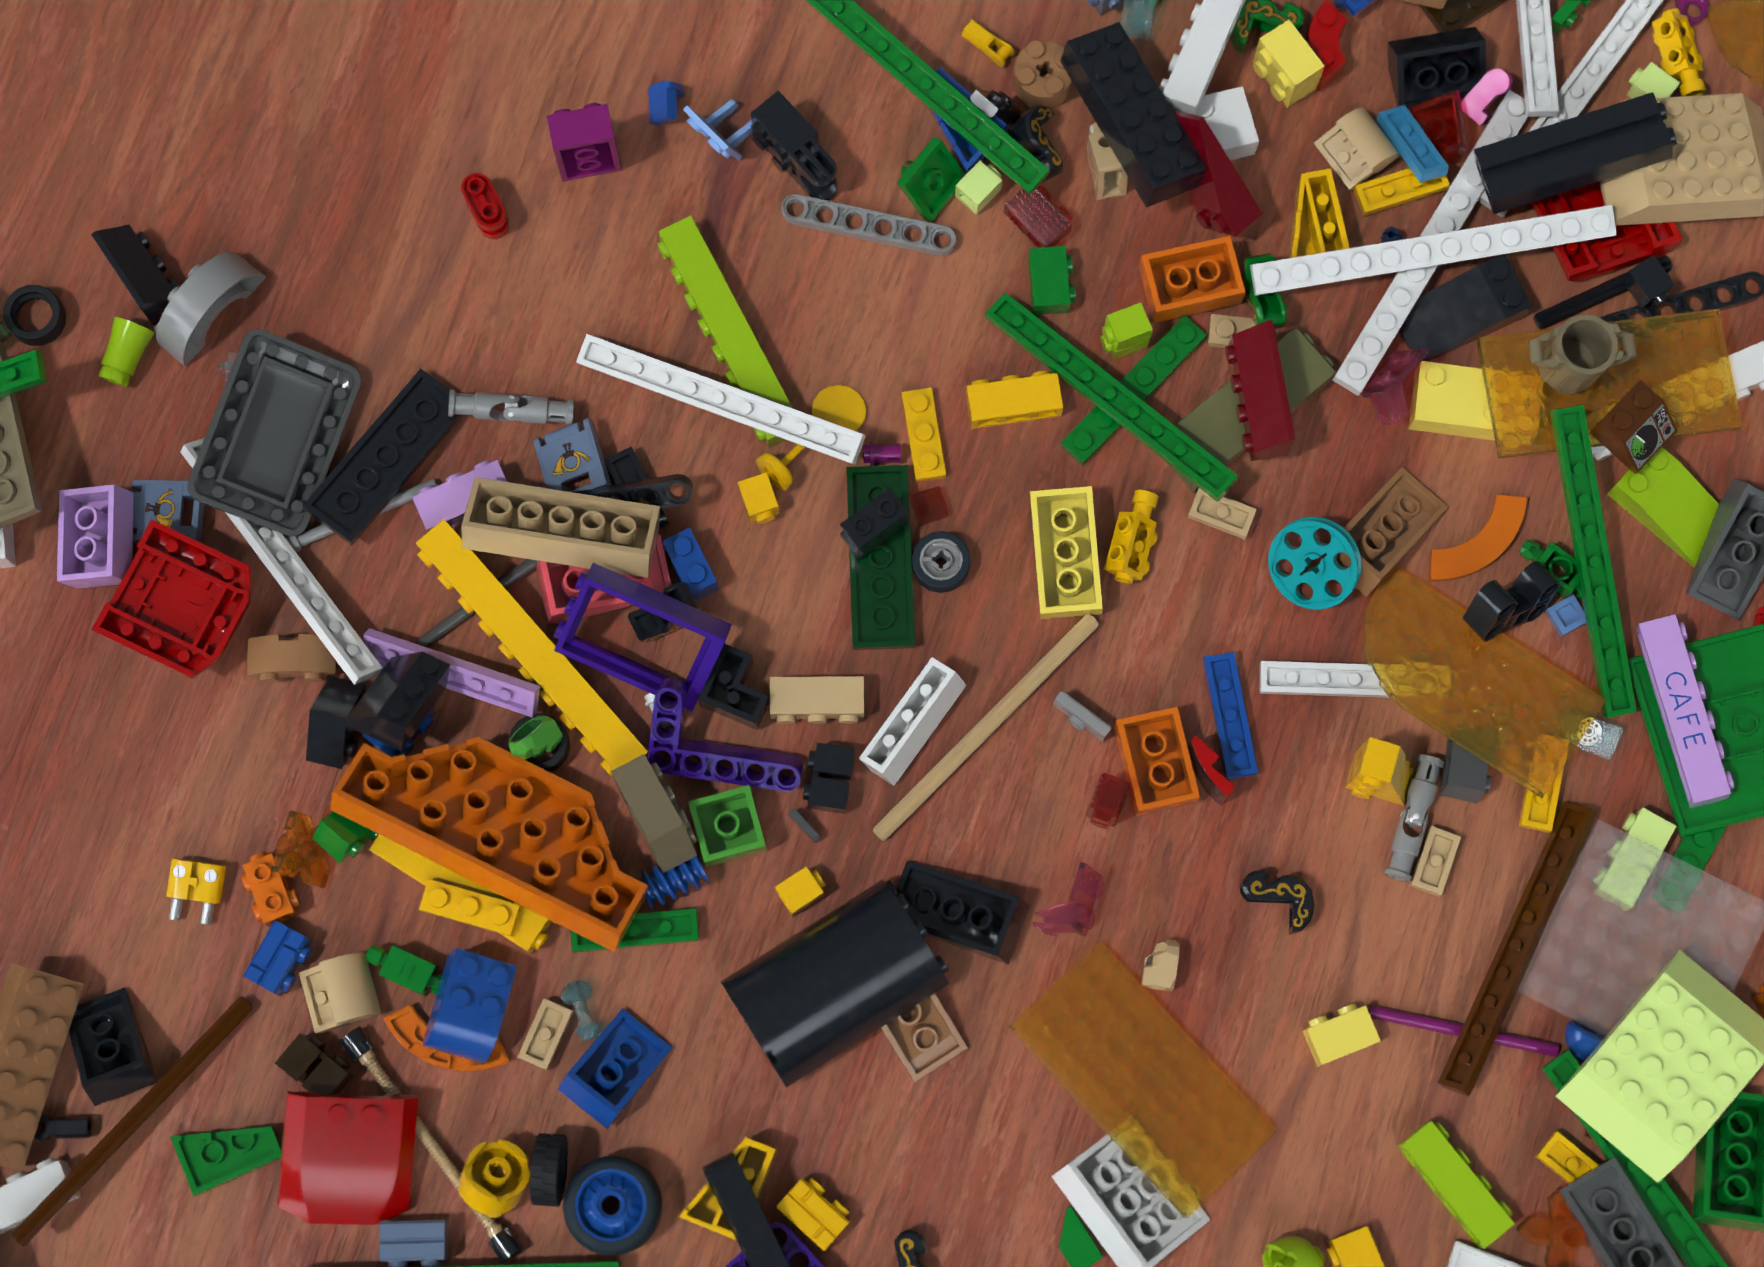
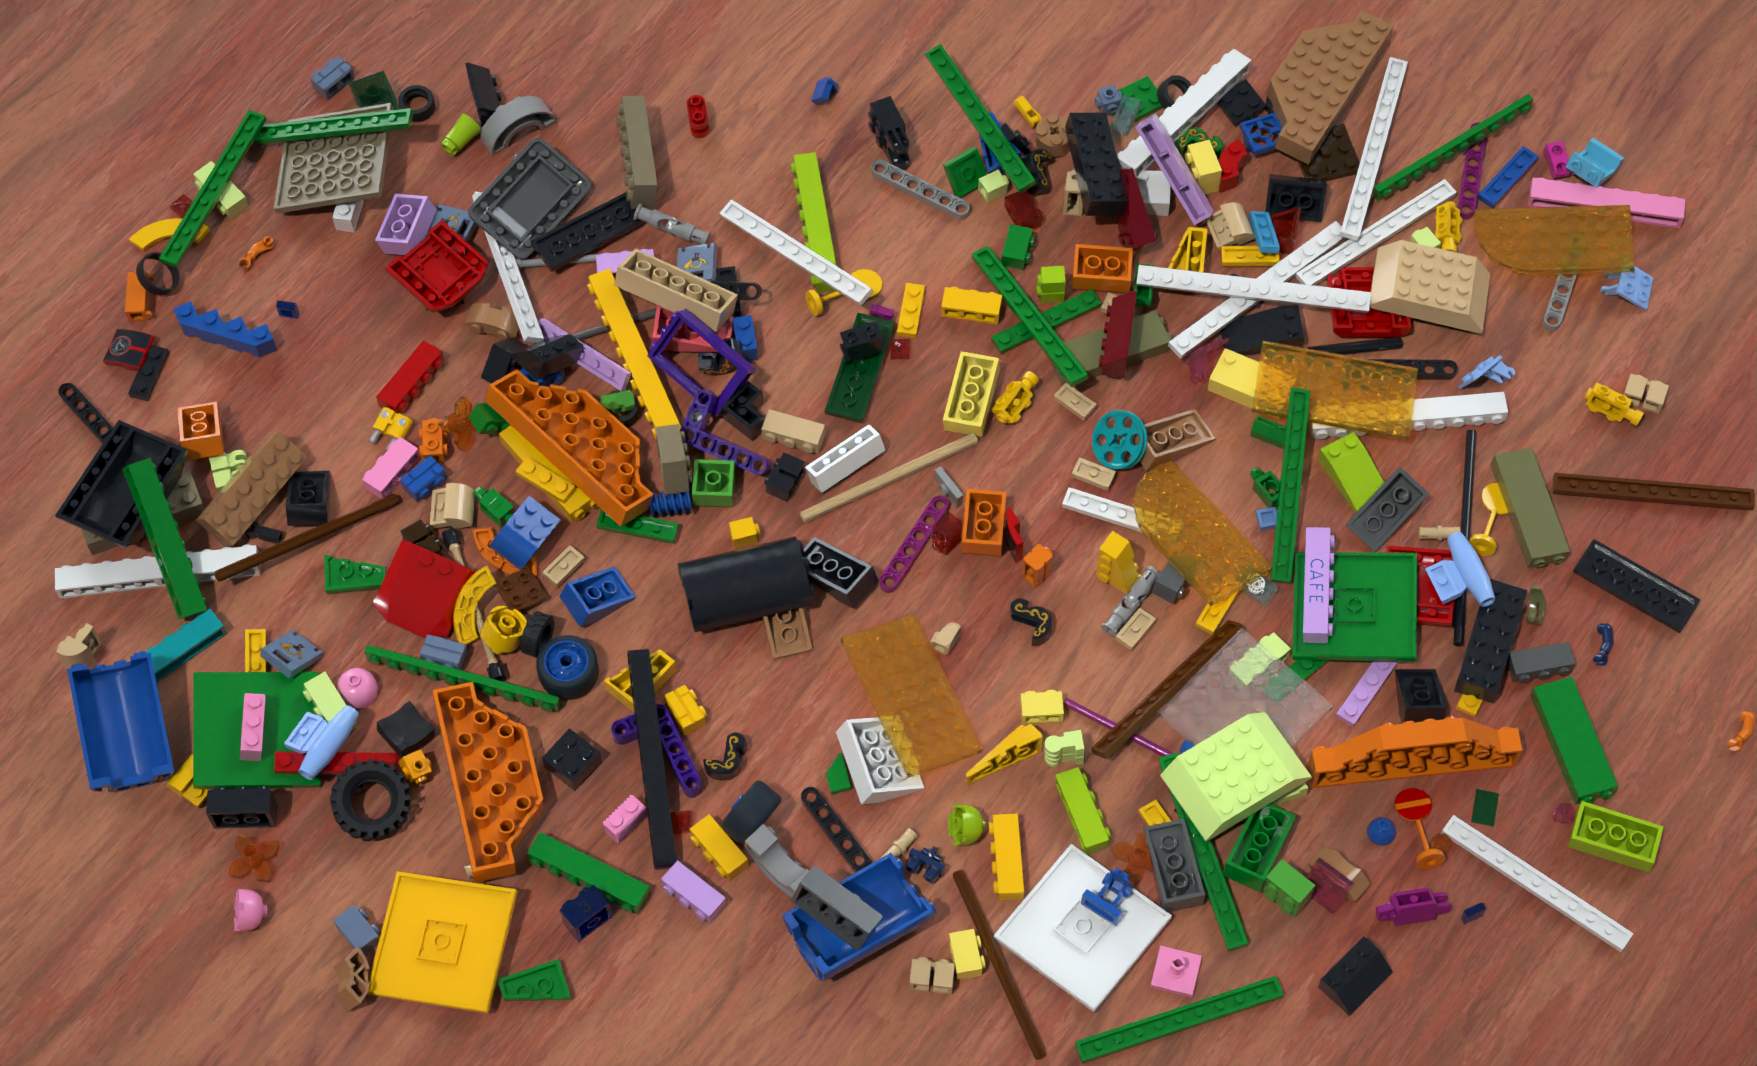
camera: 20 degrees right, 15 degrees down
(197, 794) = (411, 378): none -> red brick
(220, 956) = (391, 468): none -> bright pink brick
(415, 301) = (637, 152): none -> dark tan brick
(421, 1151) = (466, 604): none -> yellow tile
(494, 1099) = (520, 590): none -> reddish brown hinge
(576, 994) = (588, 550): clear light blue bar -> none
(583, 142) = (767, 95): magenta brick -> none
(707, 126) = (847, 109): light blue plate -> none
(758, 498) = (799, 315): yellow brick -> none
(804, 825) = (759, 498): dark grey piece -> none
(927, 570) = (895, 389): wheel -> none
(1062, 825) = (911, 542): none -> magenta beam
(1077, 914) = (907, 586): clear pink plate -> none
(1230, 716) = (1038, 511): blue plate -> none
(1254, 86) = (1175, 169): none -> lavender brick
(1262, 809) = (1037, 565): none -> orange brick
(1289, 625) = (1093, 474): none -> tan plate
(1325, 1113) = (1016, 747): none -> yellow wedge
(1406, 1091) = (1064, 749): none -> yellowish green legs
(1484, 93) = (1318, 217): leg -> none
(1484, 547) = (1228, 466): orange tile -> none
(1501, 610) = (1221, 497): black beam -> none
(1530, 474) = (1268, 431): none -> green piece
(1575, 152) = (1357, 257): black brick -> none
(1580, 352) = (1315, 358): dark tan container -> none
(1636, 427) = (1339, 413): reddish brown slope -> none
(1648, 283) = (1381, 345): black brick -> none

